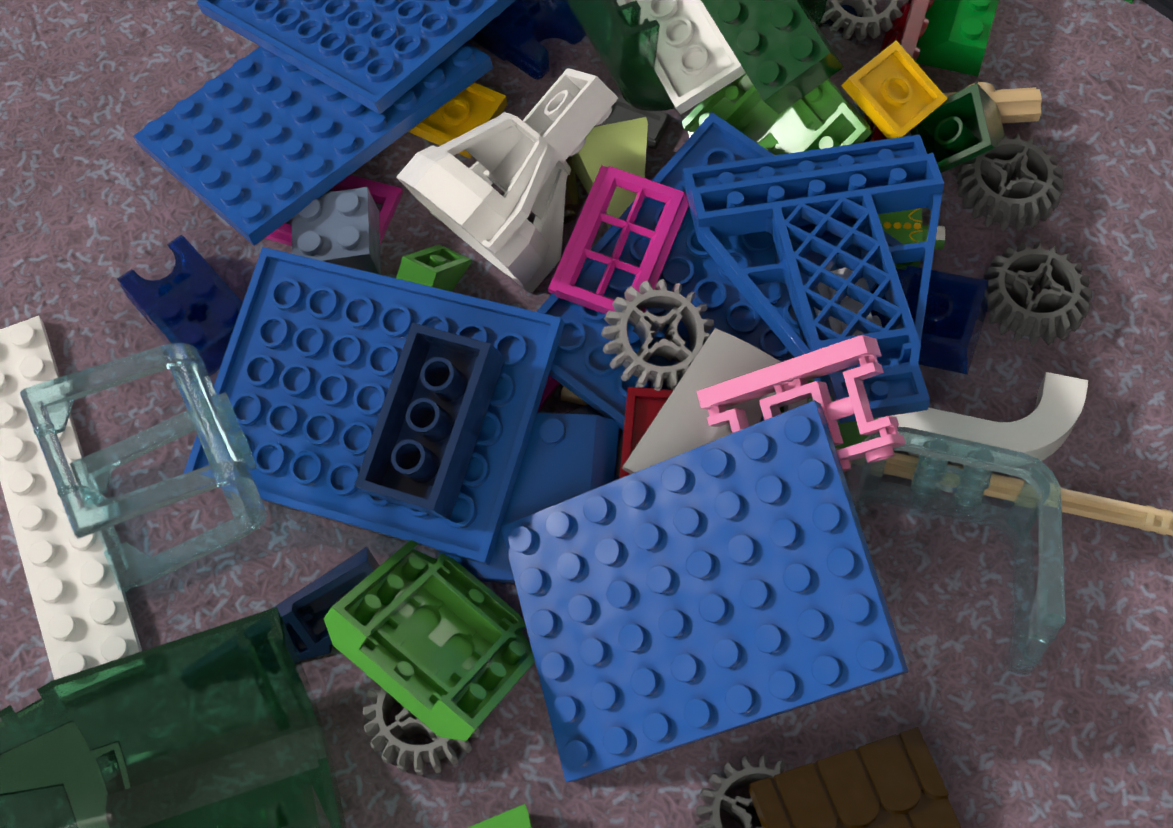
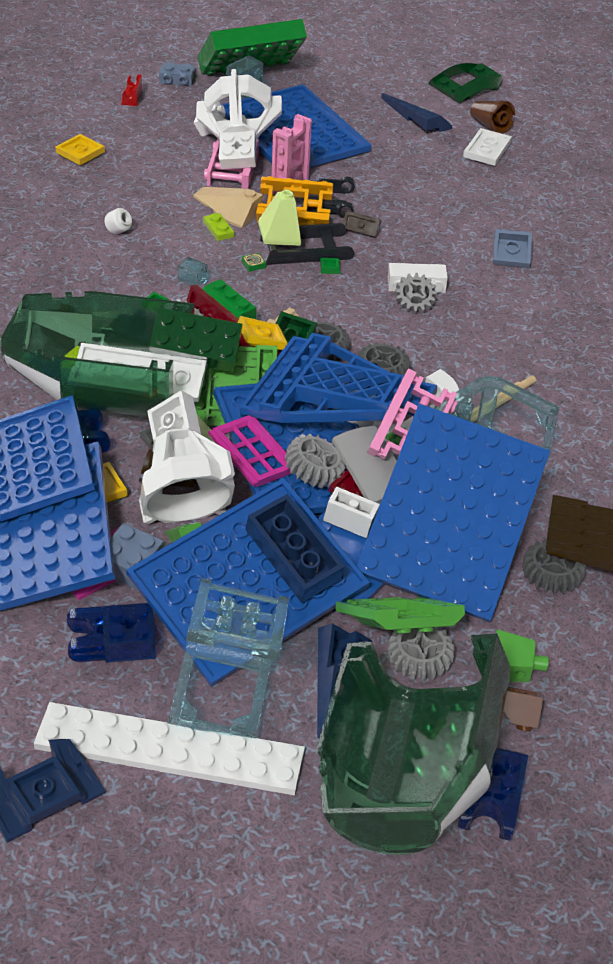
camera: 65 degrees left, 20 degrees down
(585, 447) = (351, 512): none -> white brick

